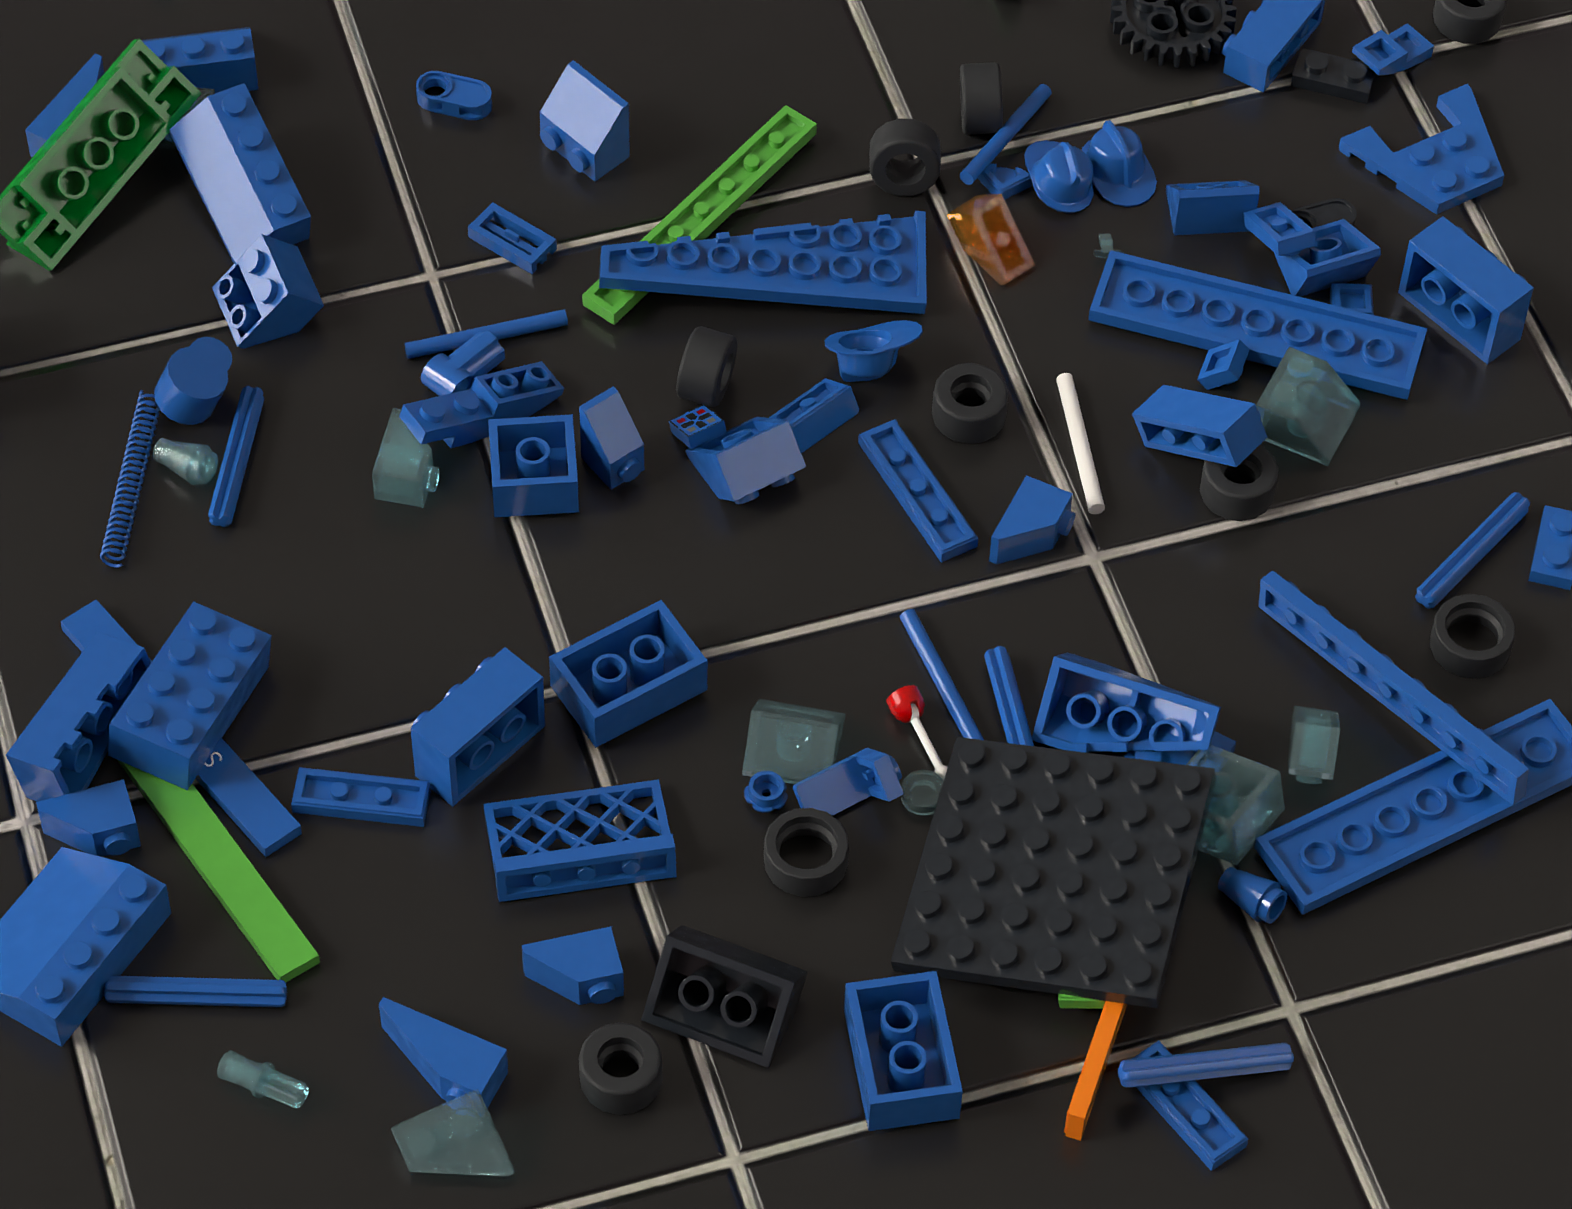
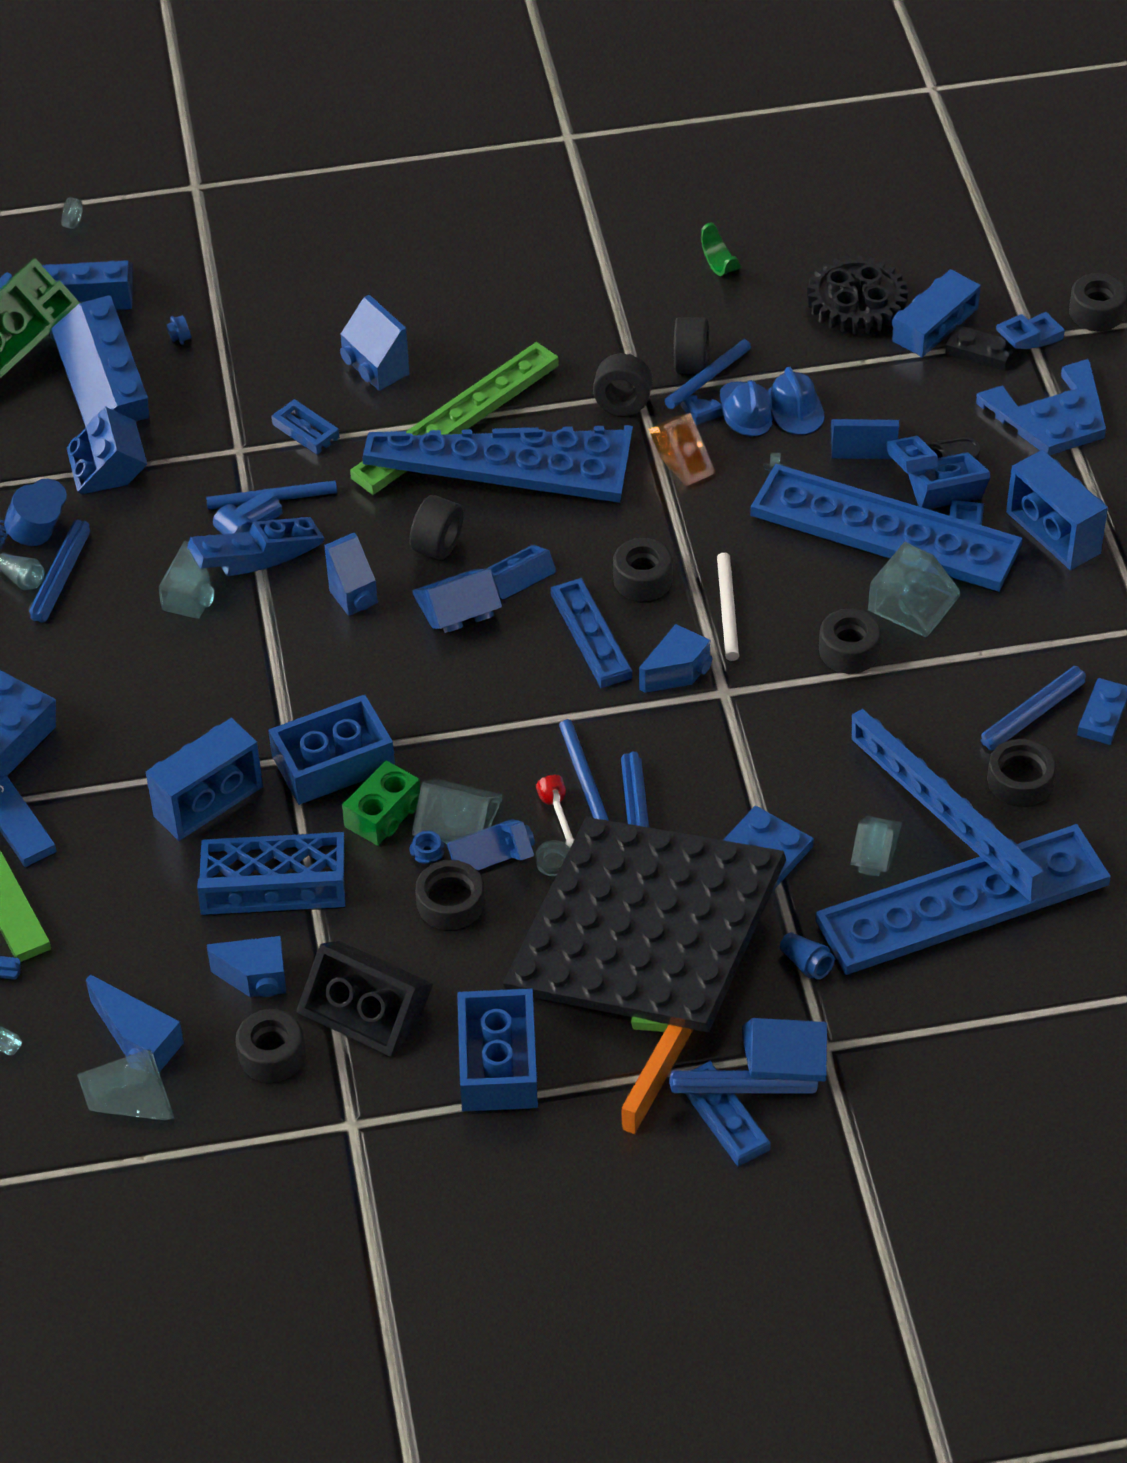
camera: 10 degrees right, 5 degrees down
(327, 116) = (178, 329): none -> blue plate
(361, 797) = (107, 827): blue tile -> none
(462, 97) = (286, 321): blue piece -> none
(533, 465) = (286, 591): blue brick -> none
(694, 735) = (381, 803): none -> green brick
(697, 426) = (423, 572): blue tile -> none
(871, 350) = (569, 526): blue piece -> none
(1108, 709) = (718, 806): blue wedge -> none
(1200, 425) = (821, 595): blue brick -> none
(1223, 364) = (852, 555): blue plate -> none
(1242, 803) = (805, 885): clear light blue slope -> none
(1251, 1020) = (786, 1049): none -> blue slope

